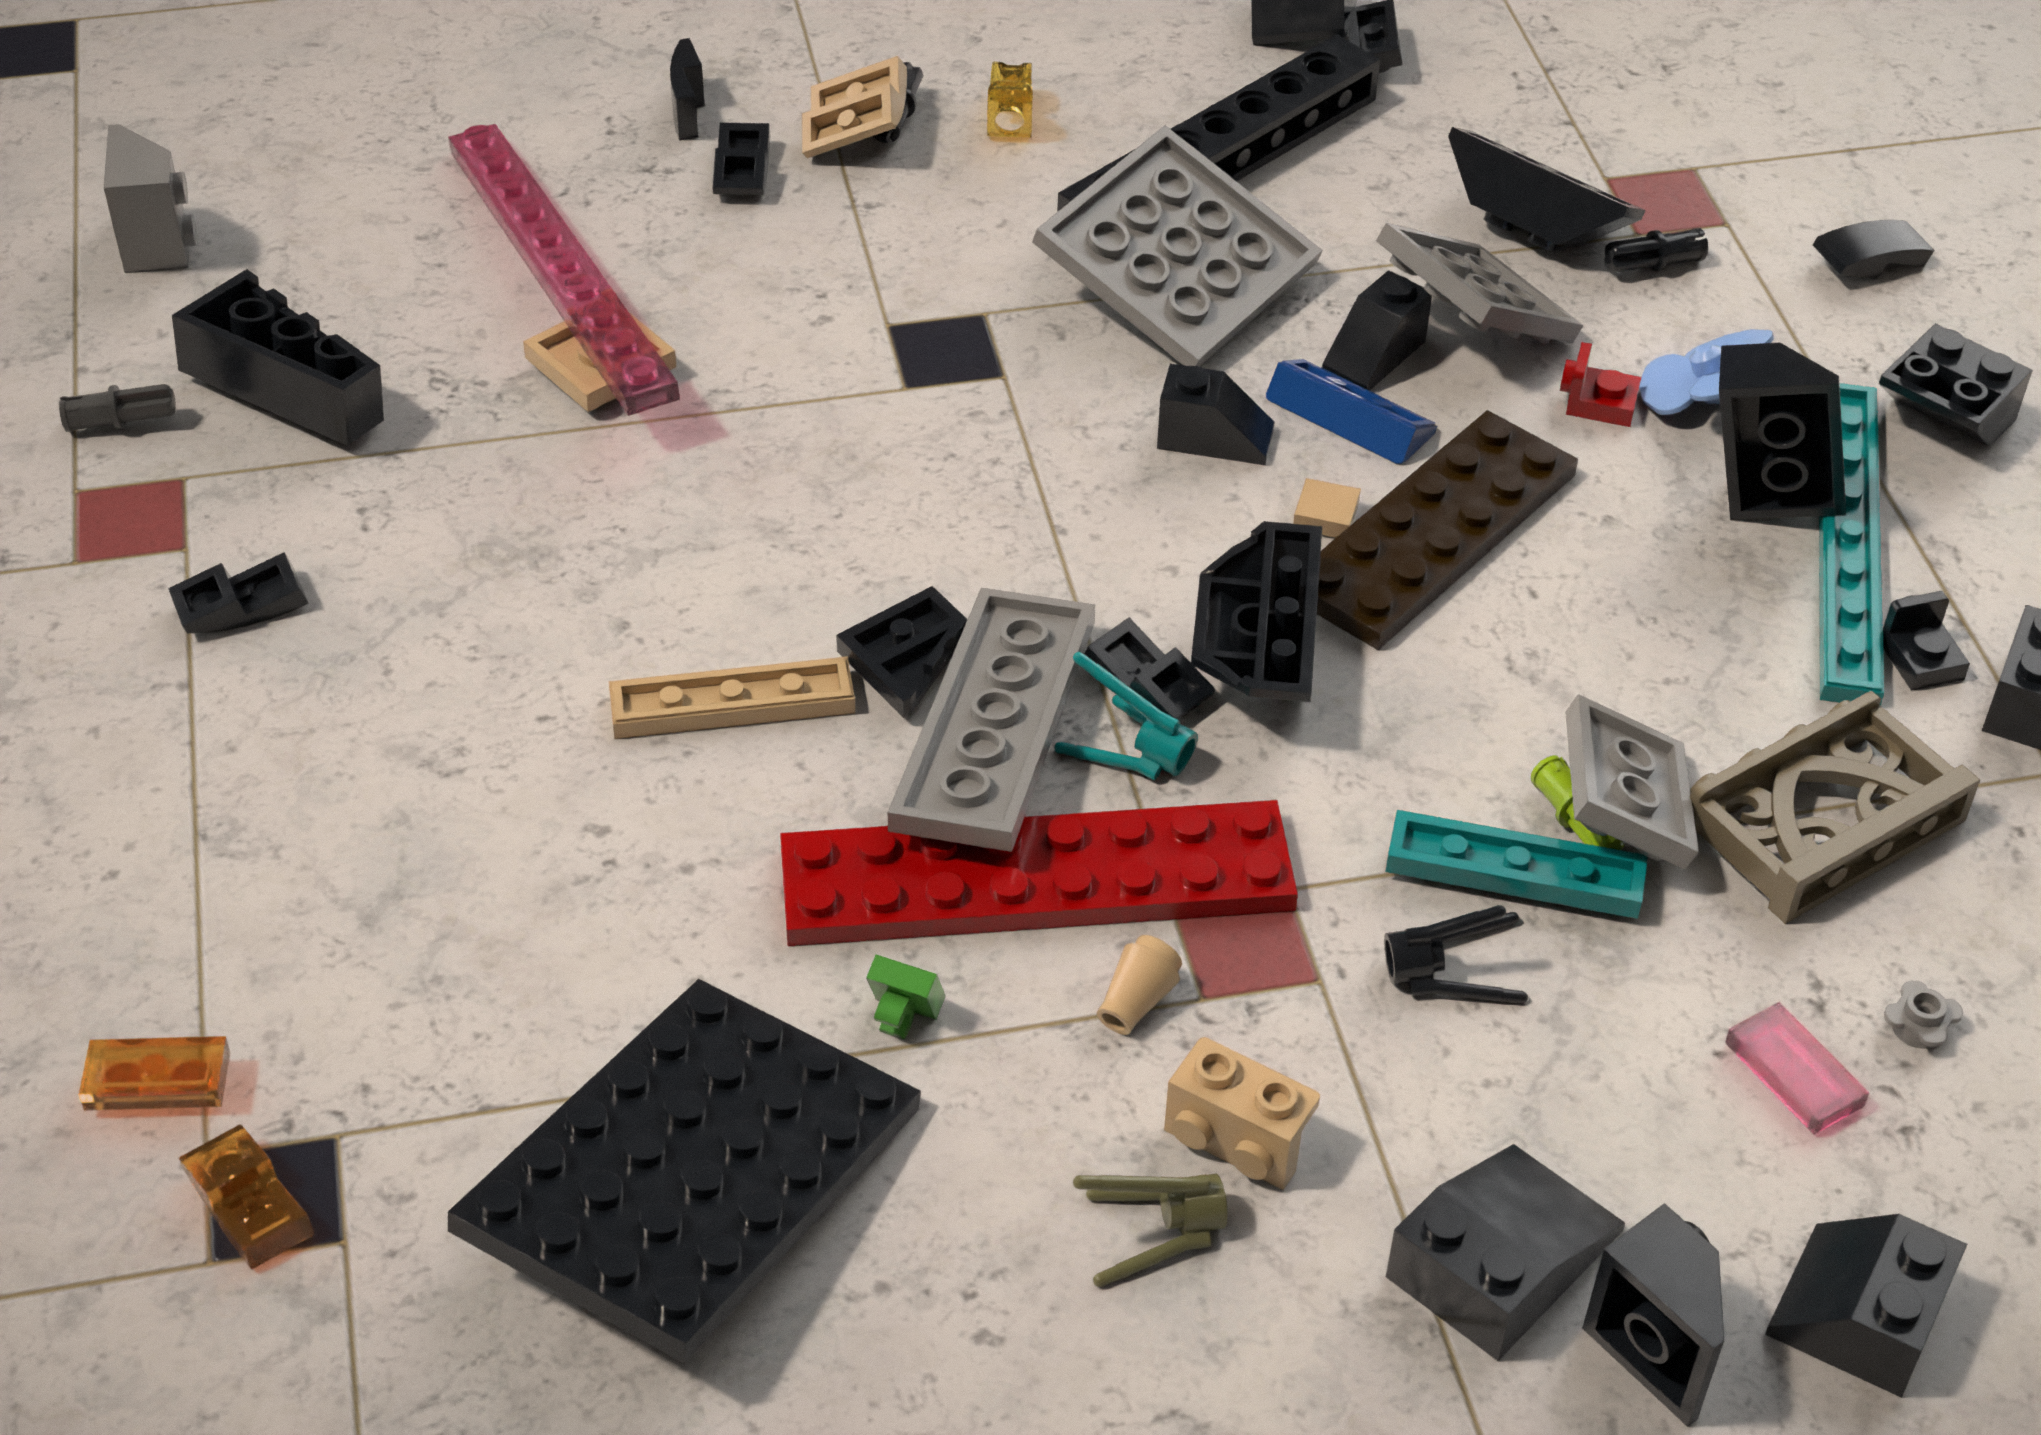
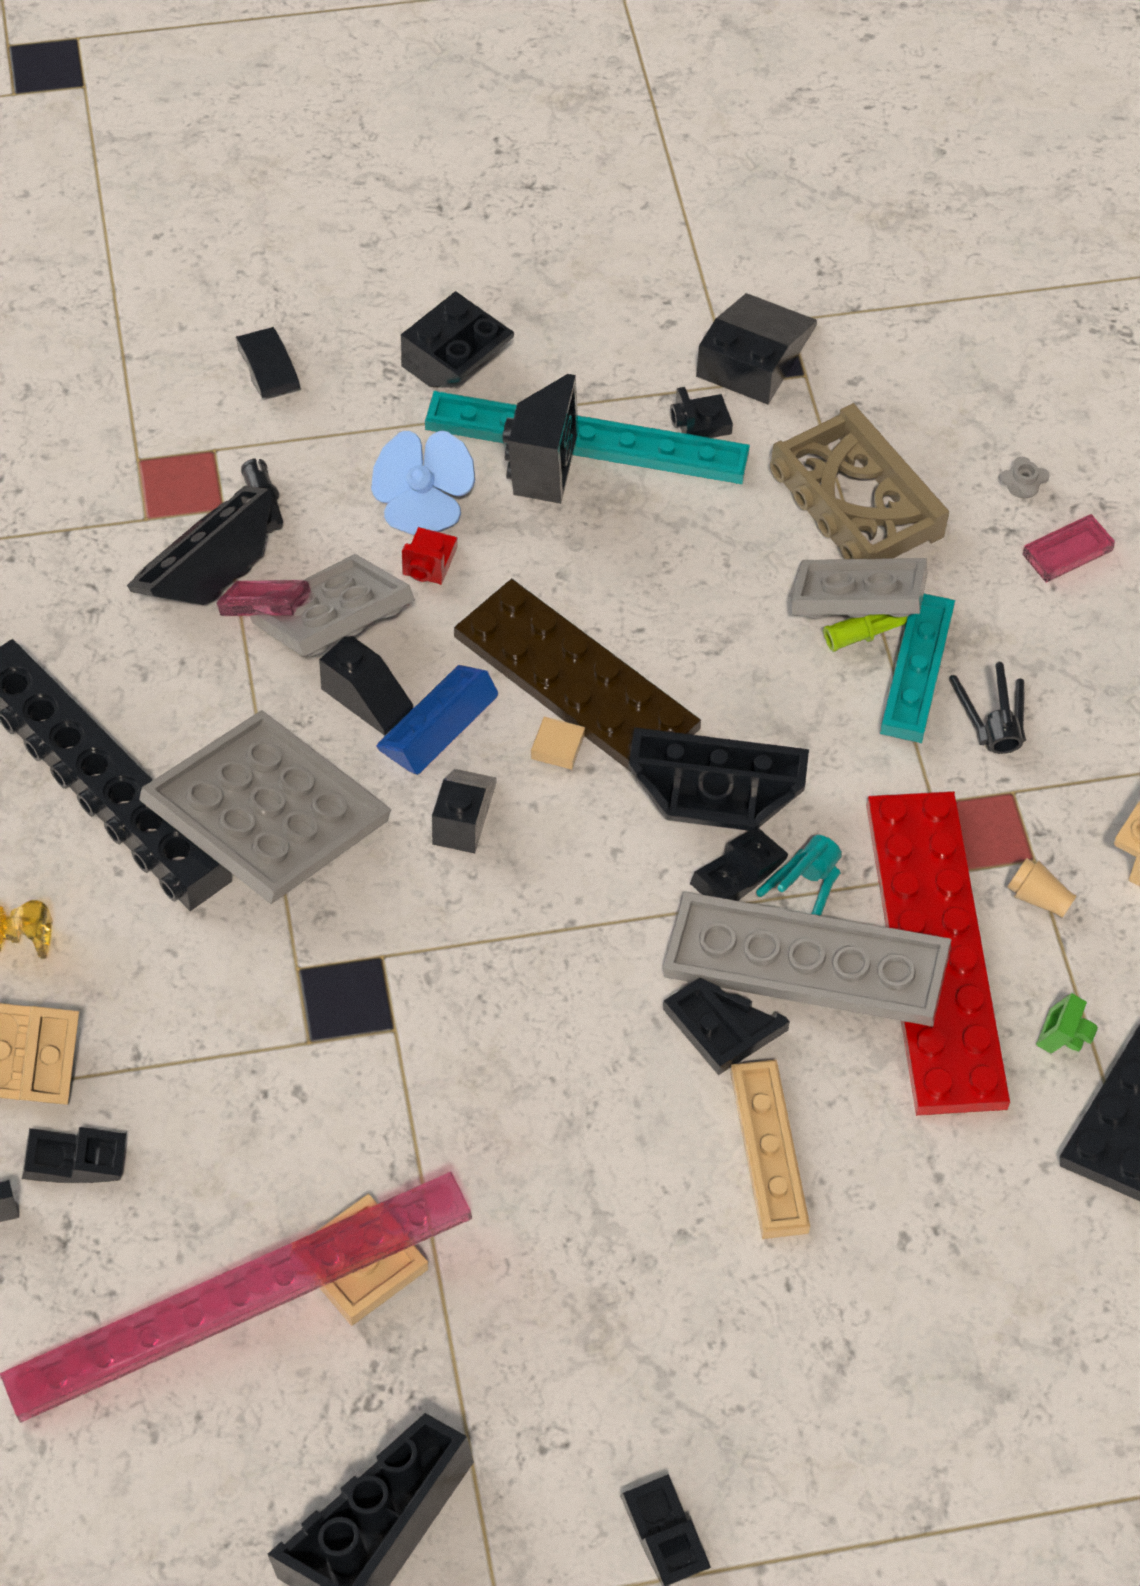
camera: 90 degrees left, 10 degrees up
(1488, 244) = (263, 597): none -> clear pink tile

